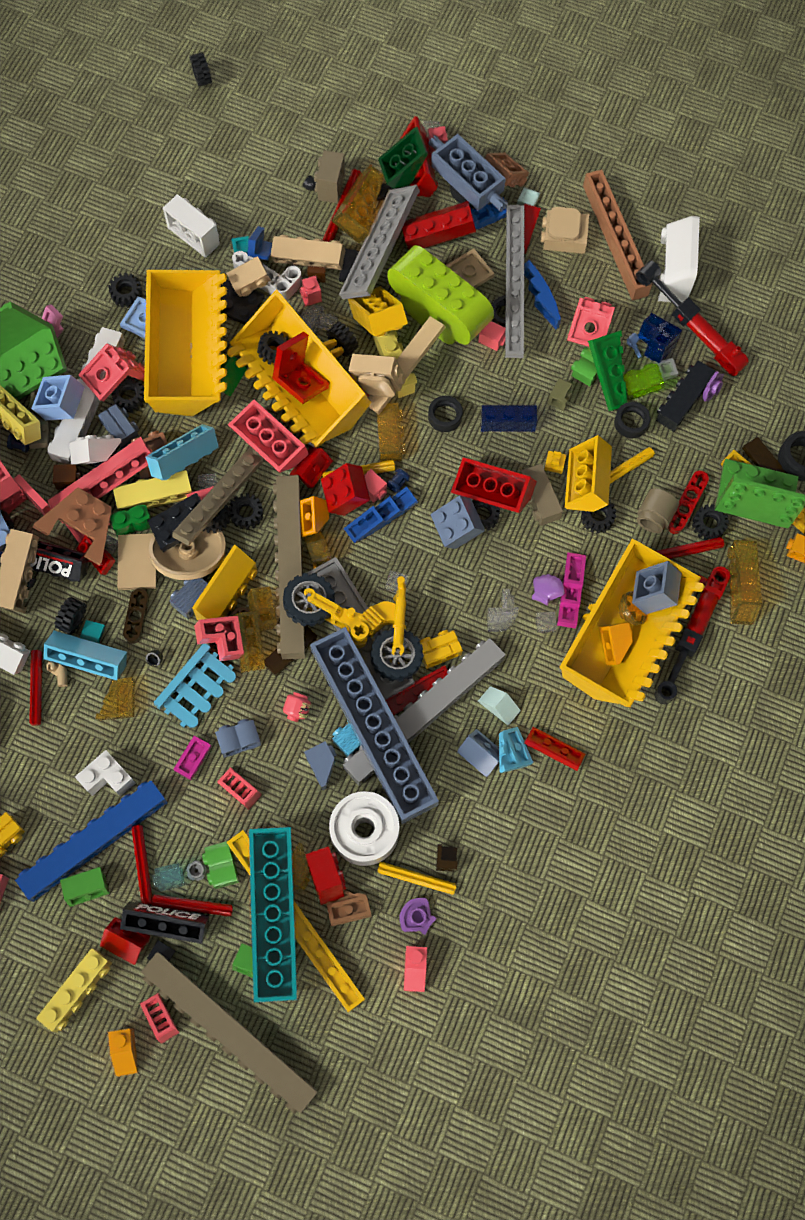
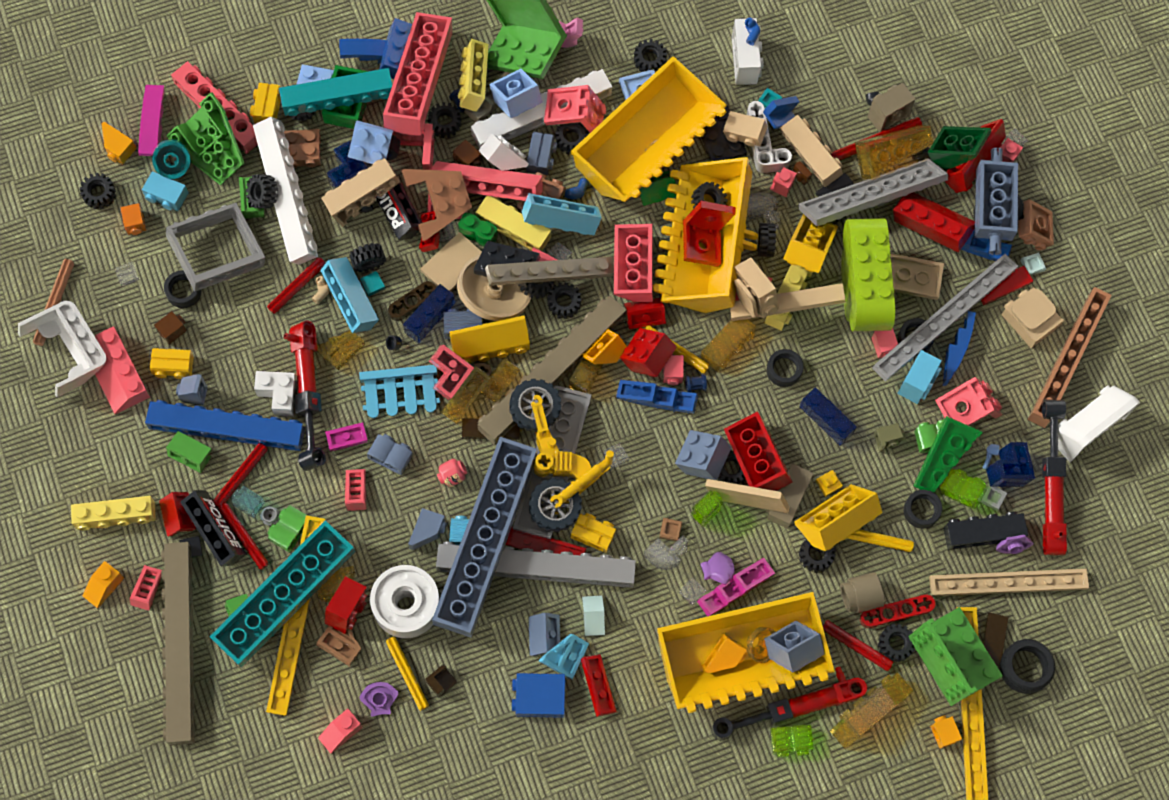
camera: 45 degrees right, 0 degrees up
(17, 458) = (441, 111): none -> black tyre
(38, 839) = (192, 389): none -> sand blue slope
(136, 760) = (307, 401): none -> piece
(159, 612) = (429, 313): none -> clear blue brick
(174, 428) = (577, 192): none -> blue arm
(185, 203) = (753, 30): none -> blue arm
(487, 595) = (670, 529): none -> medium nougat tile
(498, 555) = (707, 508): none -> clear neon green brick
(518, 519) = (749, 495): none -> tan tile
(524, 796) = (539, 695): none -> blue brick
(540, 335) = (920, 377): none -> medium azure brick
(716, 653) = (791, 740): none -> clear neon green brick
(733, 415) = (1008, 582): none -> tan plate

